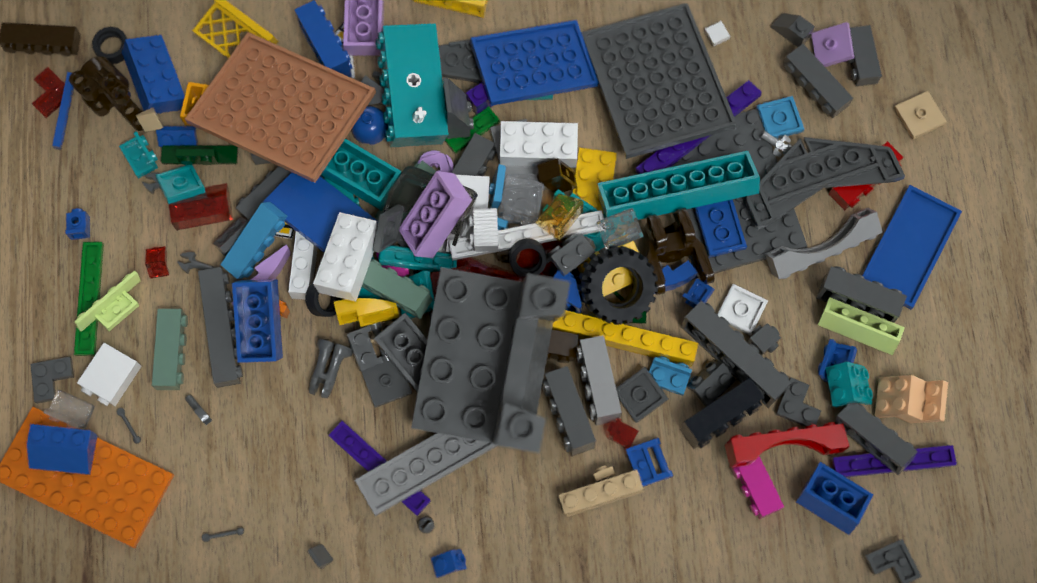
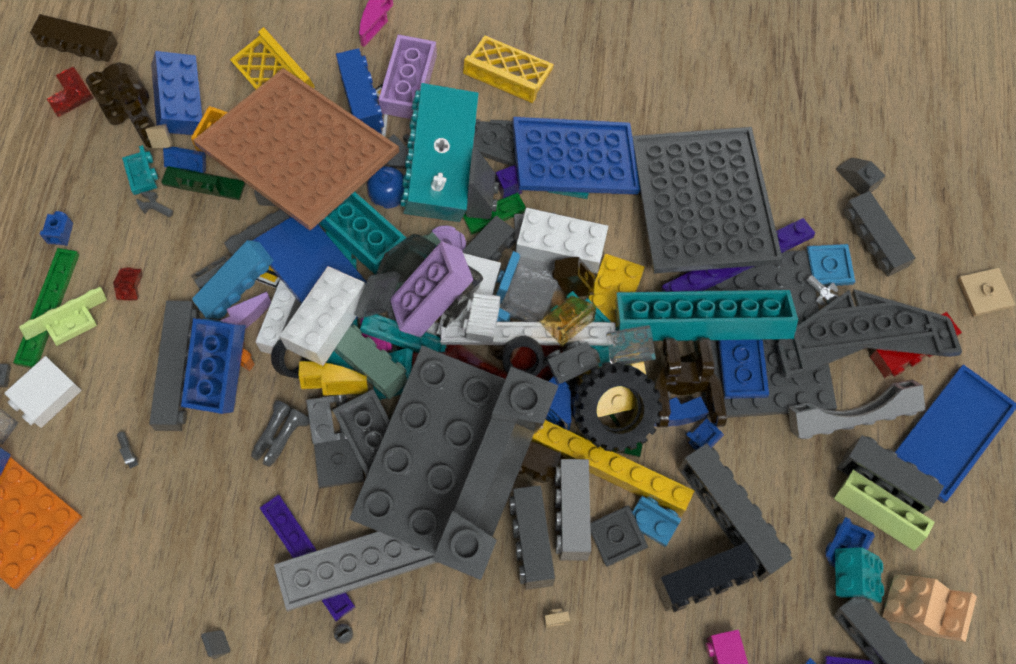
camera: 10 degrees right, 5 degrees down
(63, 114) = (73, 115): blue tile -> none
(104, 34) = (137, 47): black tyre -> none
(121, 412) = (45, 435): dark grey hinge -> none
(169, 349) = (113, 378): sand green brick -> none
(180, 183) = (173, 207): teal tile -> none
(194, 264) = (158, 295): dark grey bar -> none
(202, 209) = (188, 236): clear red slope -> none
(206, 537) = (96, 594): dark grey hinge -> none
(601, 493) = (549, 640): tan brick -> none
(622, 433) = (587, 576): clear red bracket -> none
(641, 461) = (604, 619): blue plate -> none
(711, 382) = (700, 538): dark grey bracket -> none
(717, 33) = (777, 165): white tile -> none
(742, 309) = (751, 463): white tile -> none
(765, 338) = (771, 501): dark grey brick -> none
(792, 405) = (789, 586): dark grey plate -> none
(827, 440) = (820, 633): red arch -> none
(833, 44) = (903, 199): lavender plate -> none
(865, 63) = (932, 217): dark grey brick -> none

